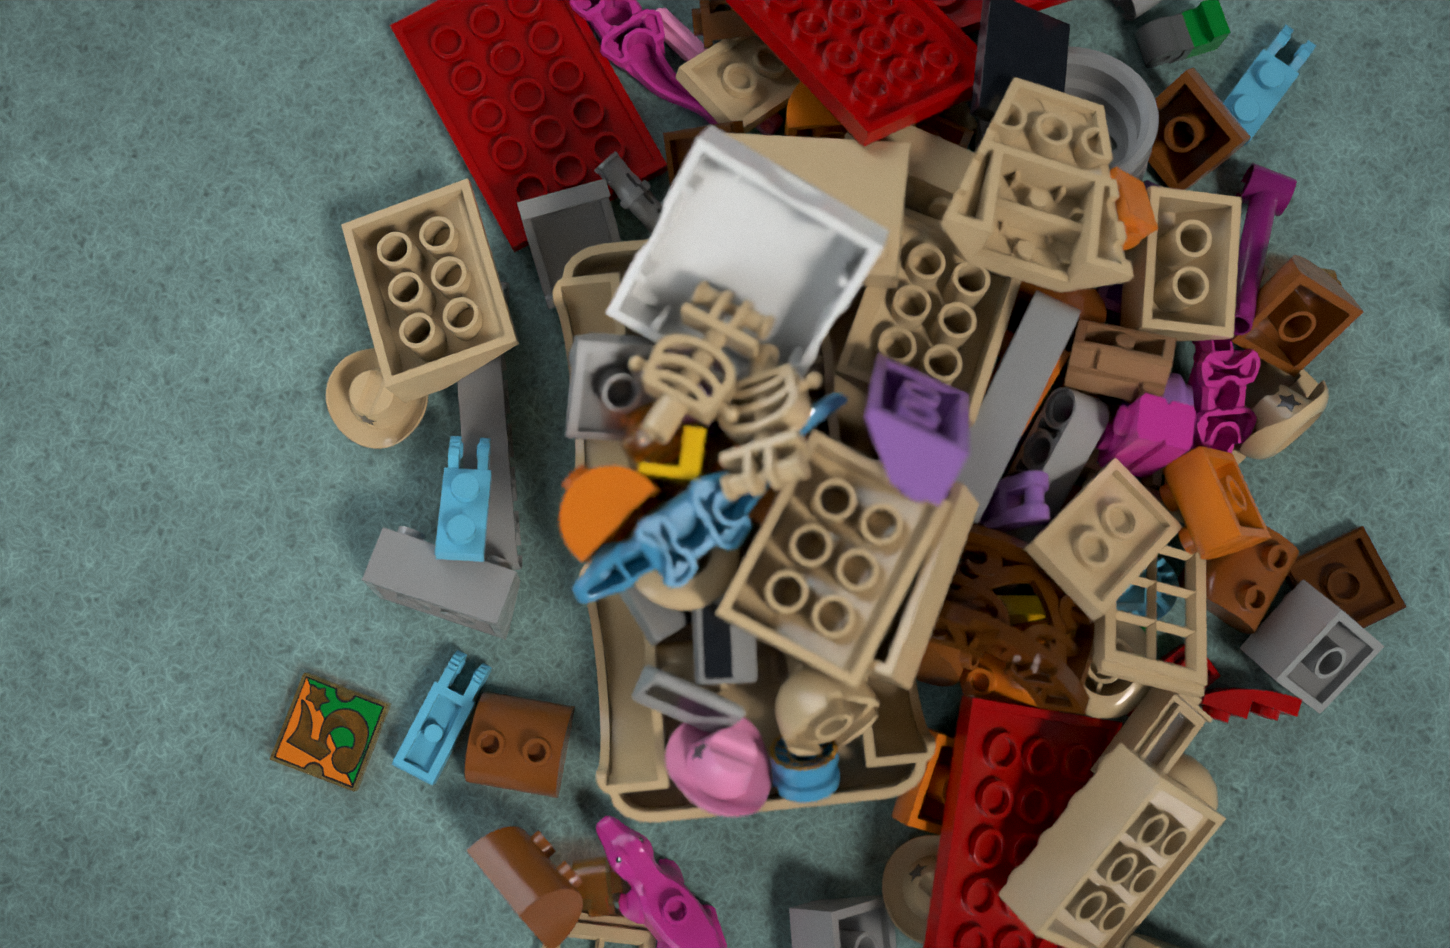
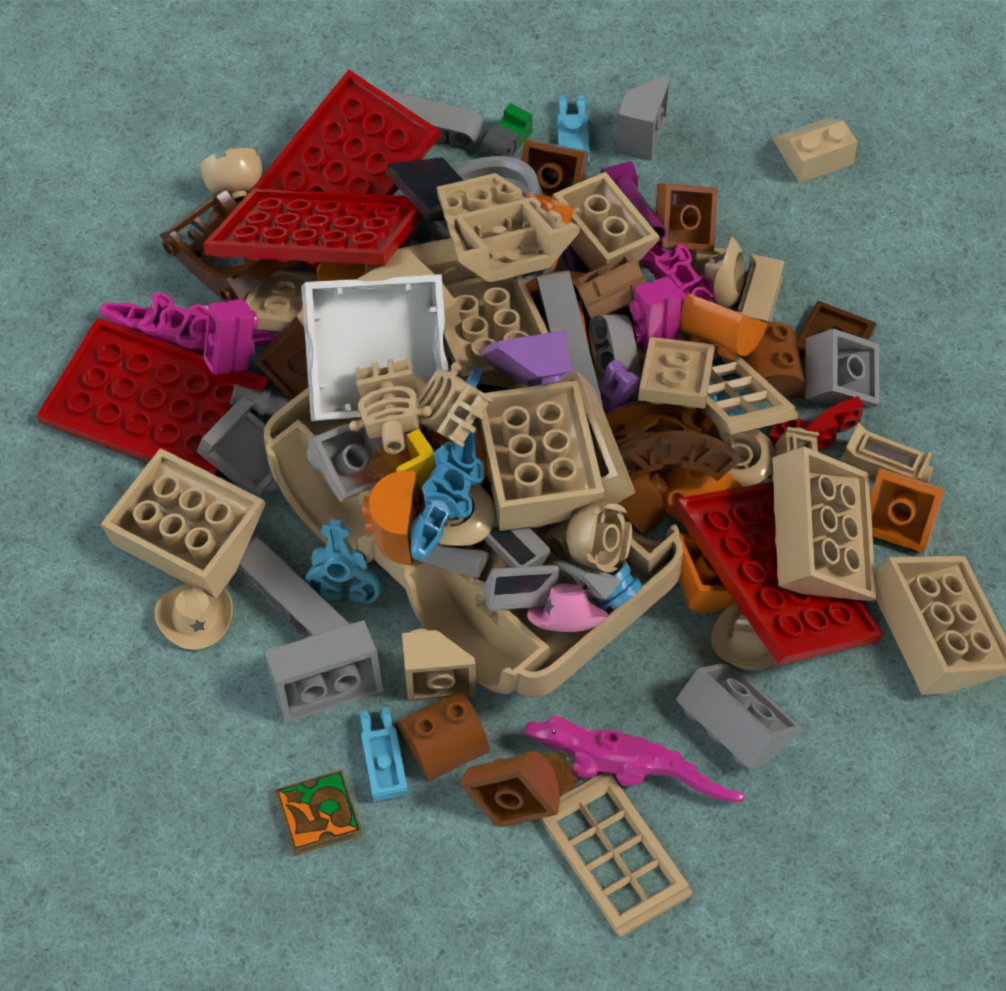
camera: 40 degrees left, 25 degrees down
(464, 504) = (302, 609): medium azure hinge -> none
(544, 466) = (339, 565): none -> medium azure animal
(560, 670) = (436, 666): none -> tan slope
(651, 86) = (229, 336): none -> dark pink brick
(769, 759) = (593, 581): none -> light grey slope
(1236, 883) = (904, 509): none -> orange brick
(1270, 798) = (872, 452): none -> tan window
(1303, 469) = (761, 287): none -> tan window
(1355, 131) = (642, 118): none -> light grey slope

